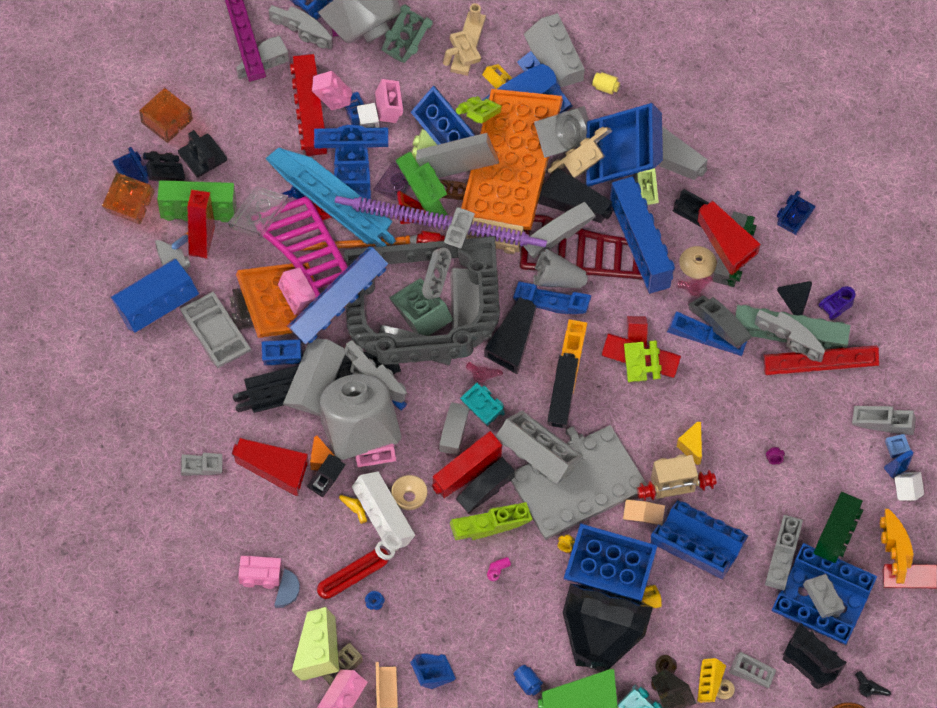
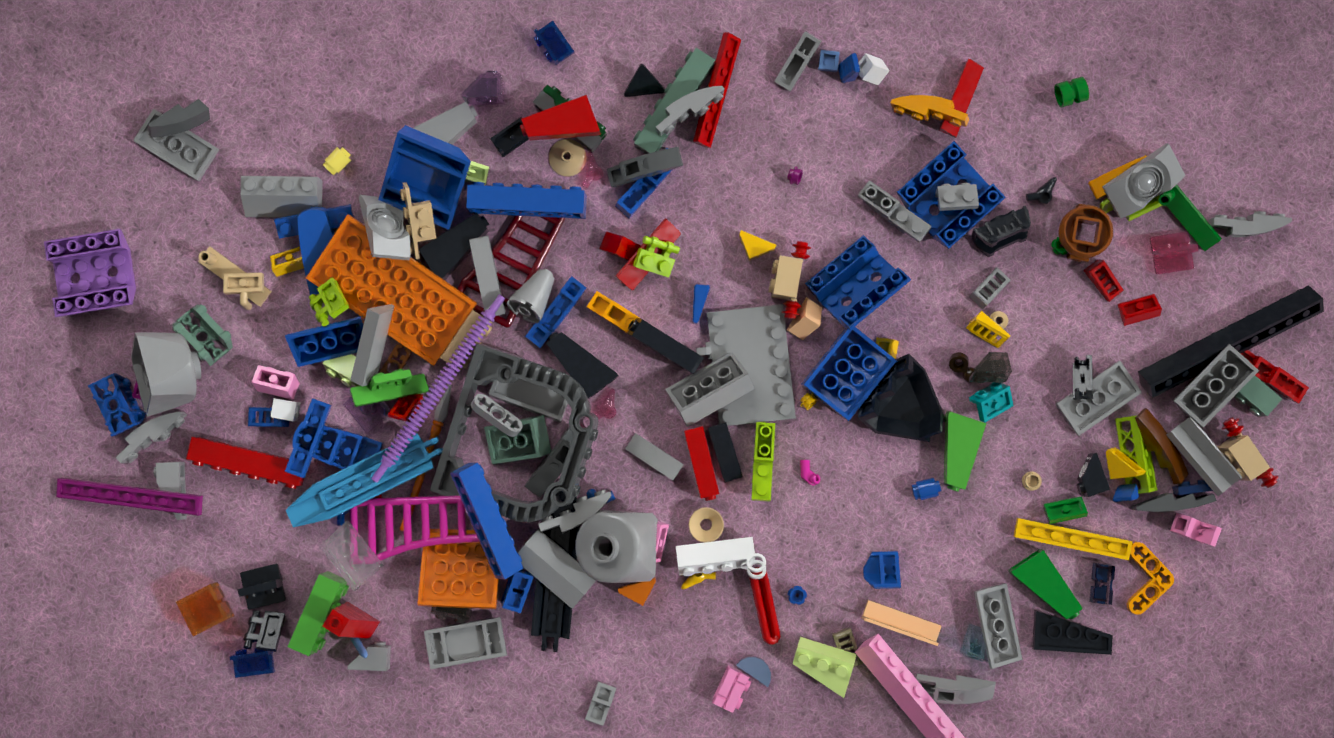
camera: 60 degrees left, 25 degrees up
(127, 198) = (289, 679): clear orange piece -> none
(154, 295) = (409, 690): blue slope -> none
(275, 464) = (629, 637): red slope -> none
(296, 290) = (461, 554): bright pink brick -> none
(326, 475) = (662, 595): black slope -> none
(331, 90) = (243, 435): bright pink brick -> none
(427, 236) = (449, 403): red brick -> none
(459, 227) = (456, 374): light grey slope -> none
(482, 404) = (642, 421): teal bracket -> none
(620, 413) = (700, 296): none -> blue slope
(725, 171) = (486, 90): none -> clear purple slope
(835, 304) = (664, 50): dark purple piece -> none
(838, 526) = (894, 153): dark green brick -> none

